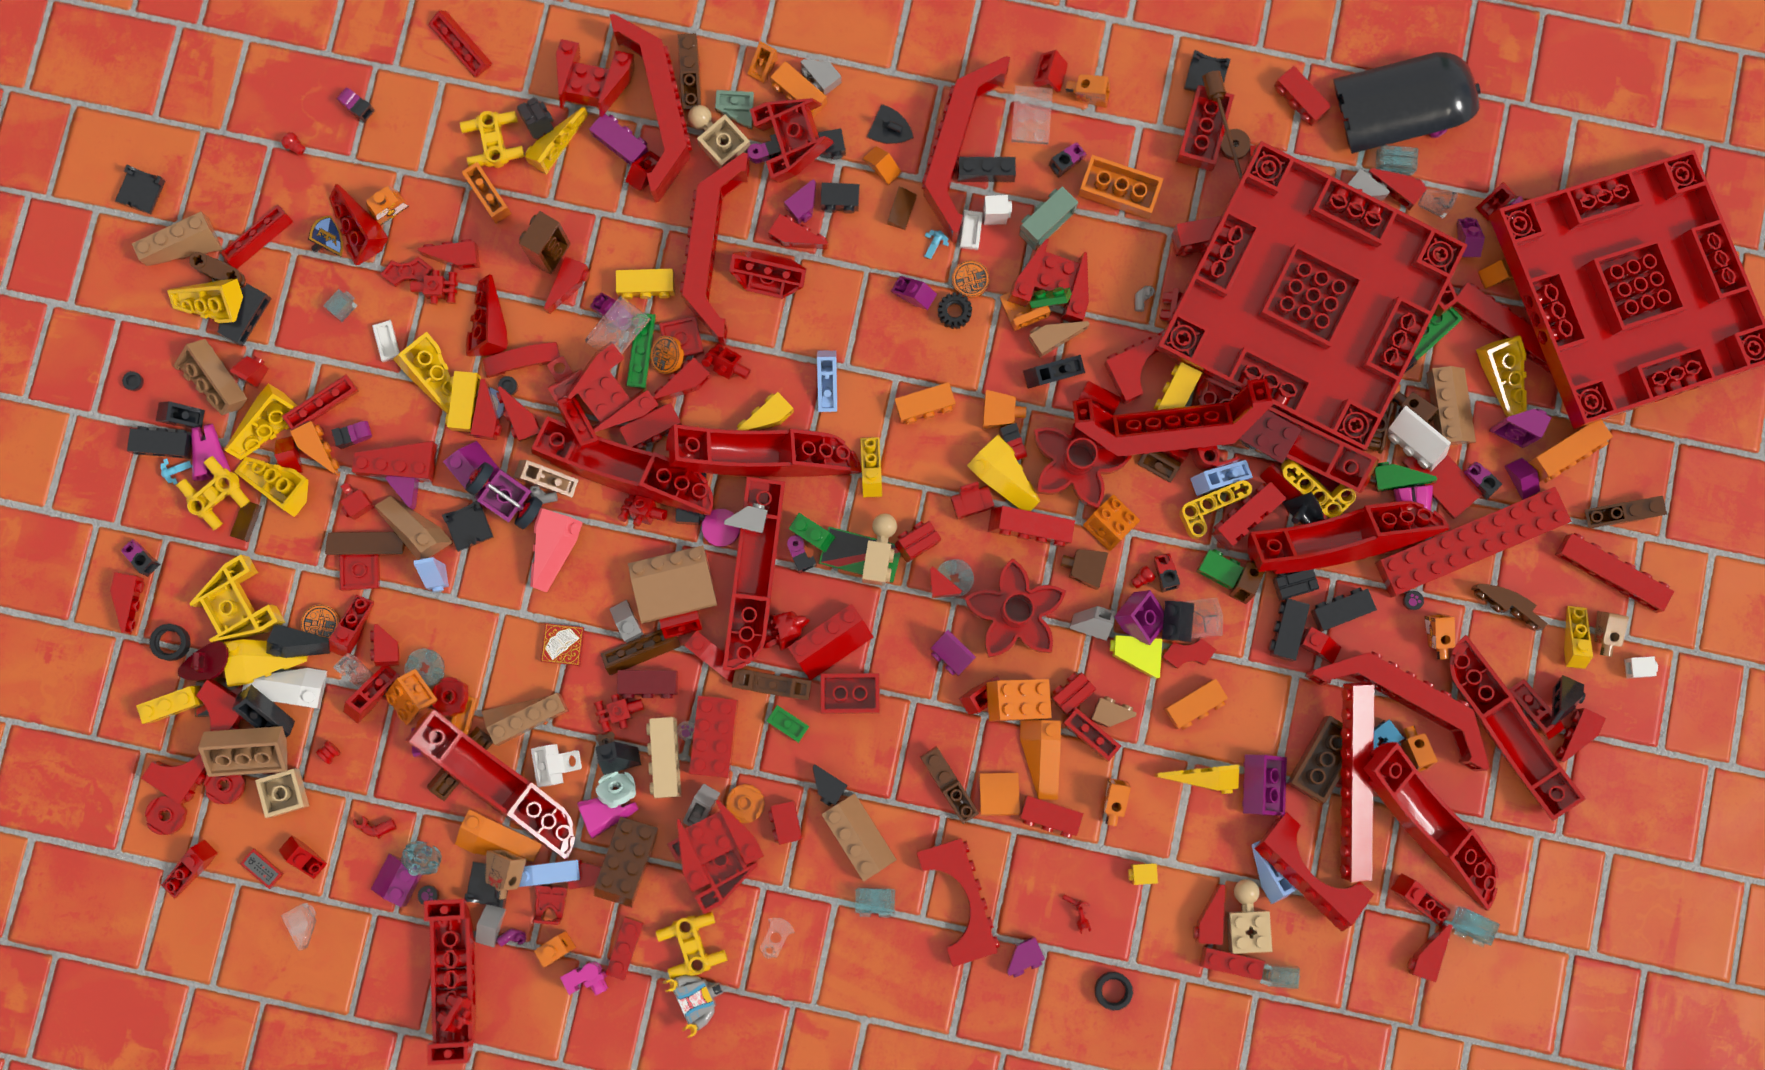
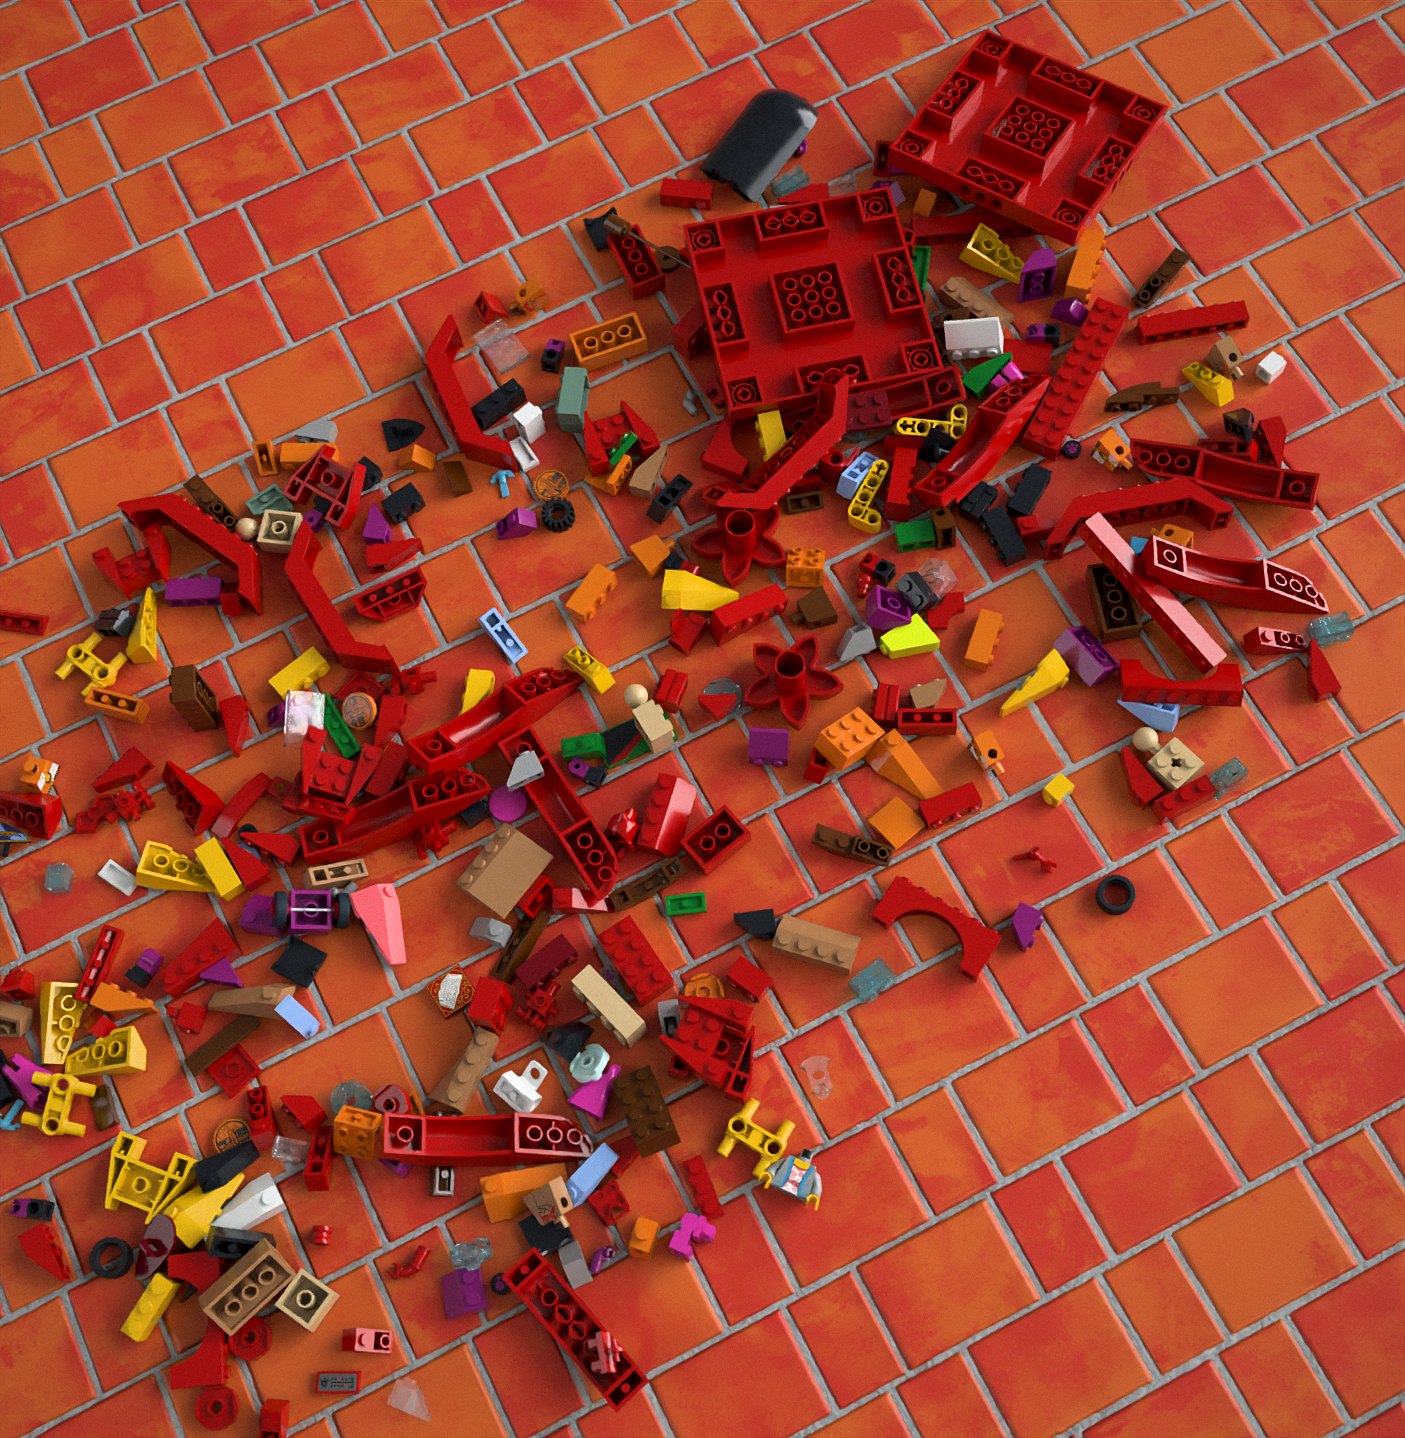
camera: 30 degrees left, 15 degrees down
(576, 686) = (490, 1006): none -> red brick

